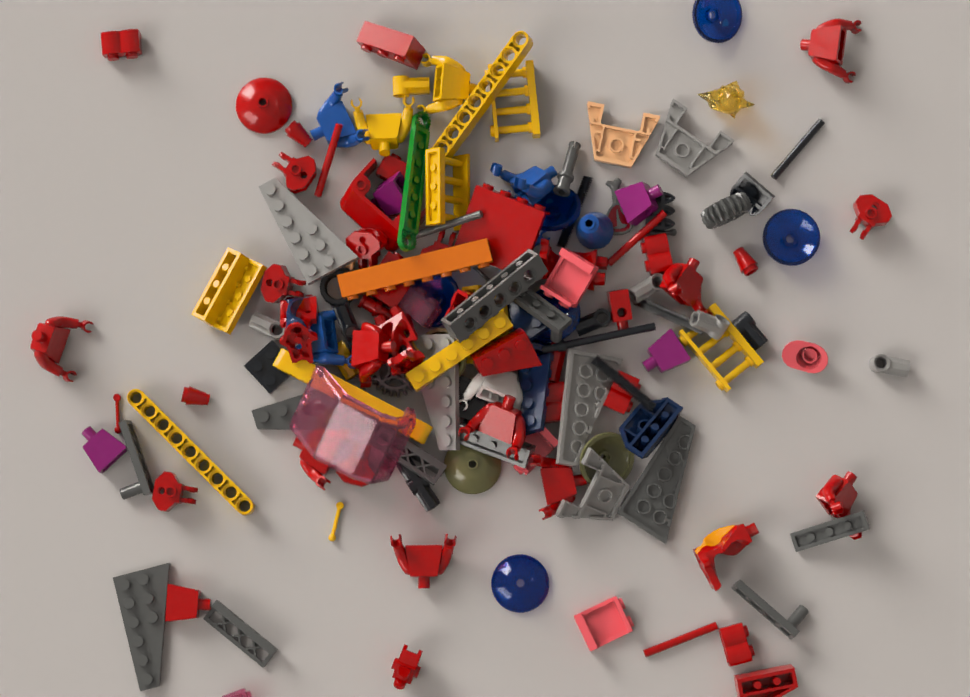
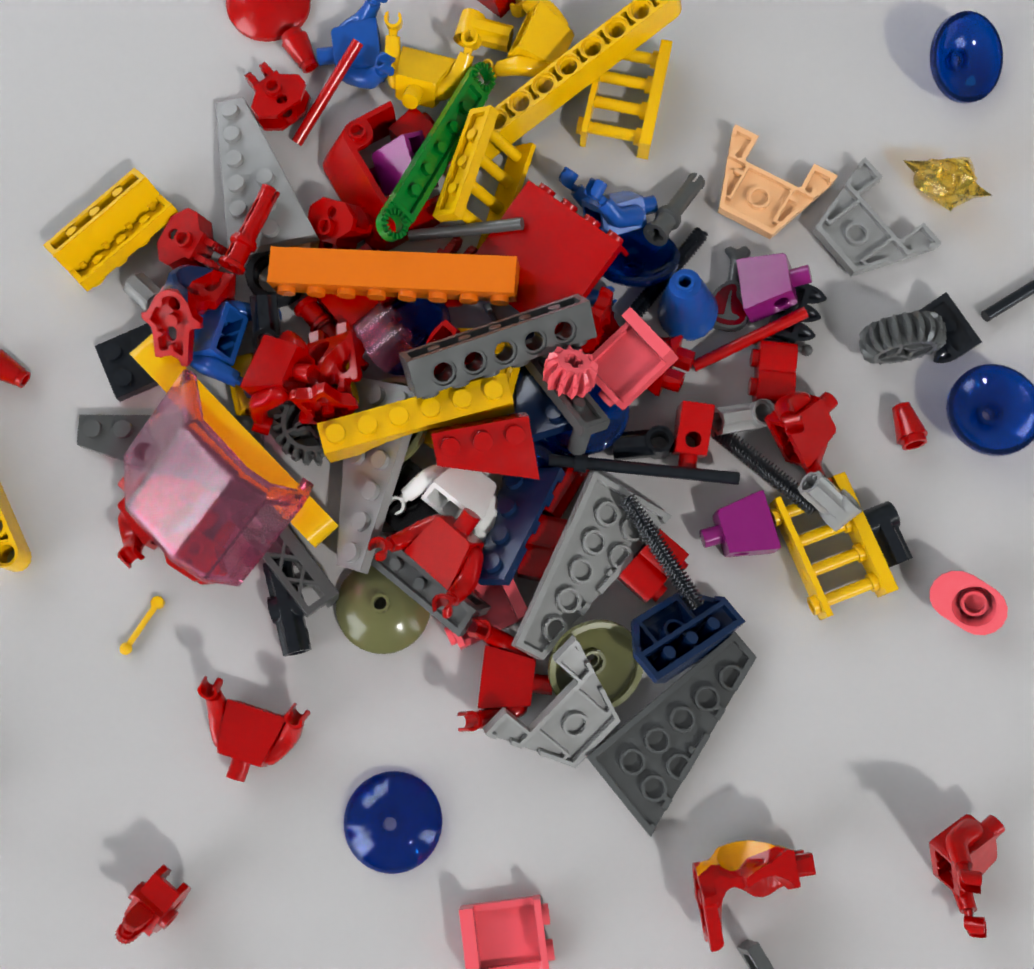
camera: 20 degrees right, 5 degrees down
(317, 276) = (244, 240): none -> red pin
(540, 298) = (570, 372): none -> coral gear
(830, 531) = (936, 909): dark grey piece -> none

